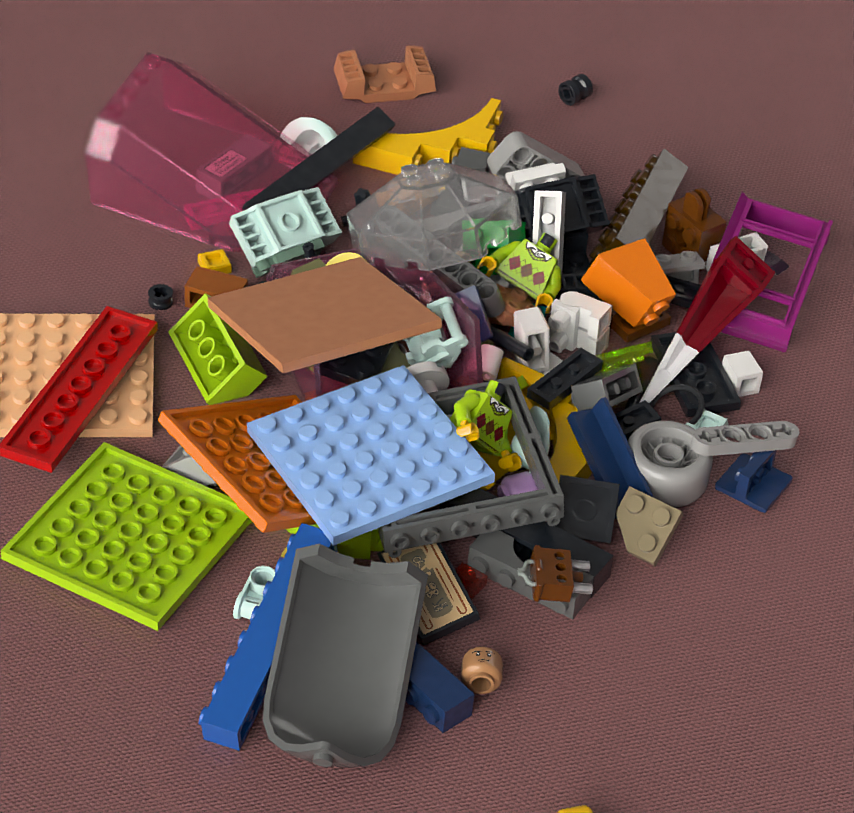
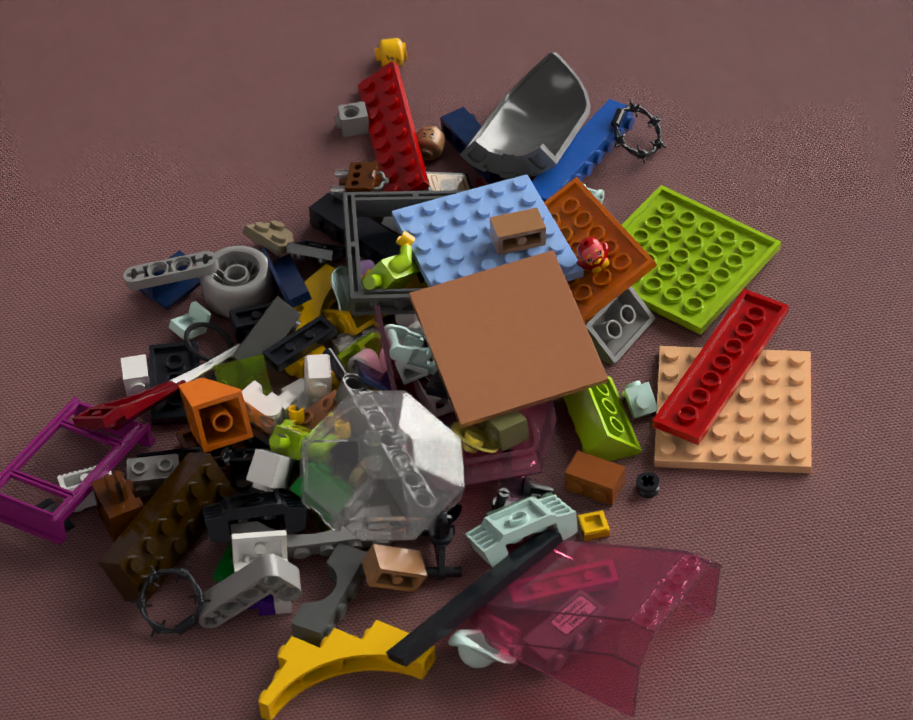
camera: 165 degrees left, 5 degrees up
(176, 373) = (639, 399): none -> light aqua bracket
(200, 700) = (654, 121): none -> black piece
(236, 415) = (593, 254): none -> animal
(331, 431) = (517, 231): none -> medium nougat brick
(537, 682) = (393, 130): none -> red plate
(598, 709) = (352, 119): none -> light grey brick
(604, 165) = (187, 623): none -> black piece

